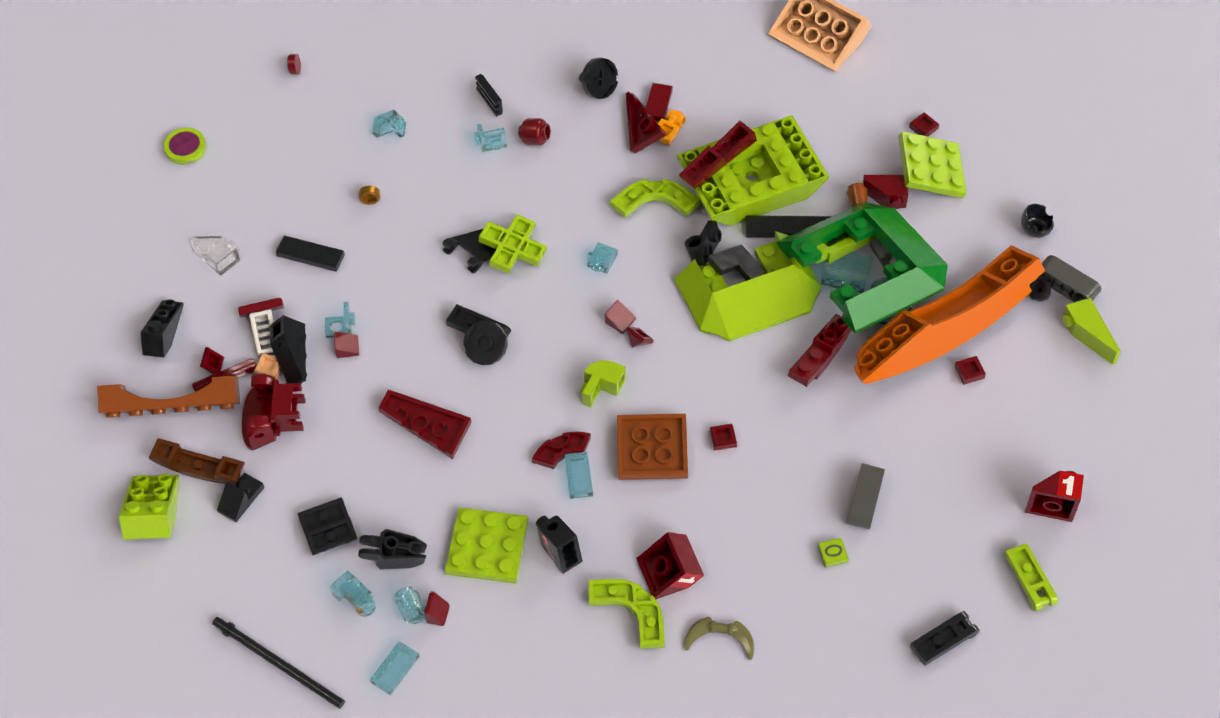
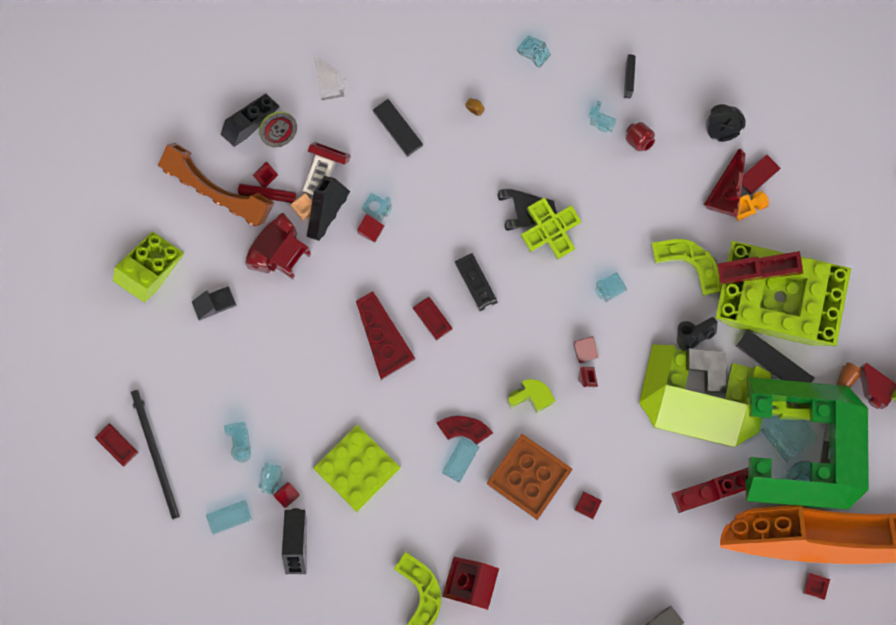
camera: 35 degrees right, 20 degrees up
(195, 464) = (200, 254): reddish brown slope -> none
(197, 315) = (278, 129): none -> shield
(232, 680) = (116, 445): none -> dark red tile
(327, 526) = (257, 371): black slope -> none
(393, 550) = (285, 426): black hinge -> none
(461, 380) = (432, 318): none -> dark red tile
(477, 642) = (294, 541): none -> black slope
(485, 342) = (469, 302): black tile -> none
(555, 535) = (405, 512): black torso -> none

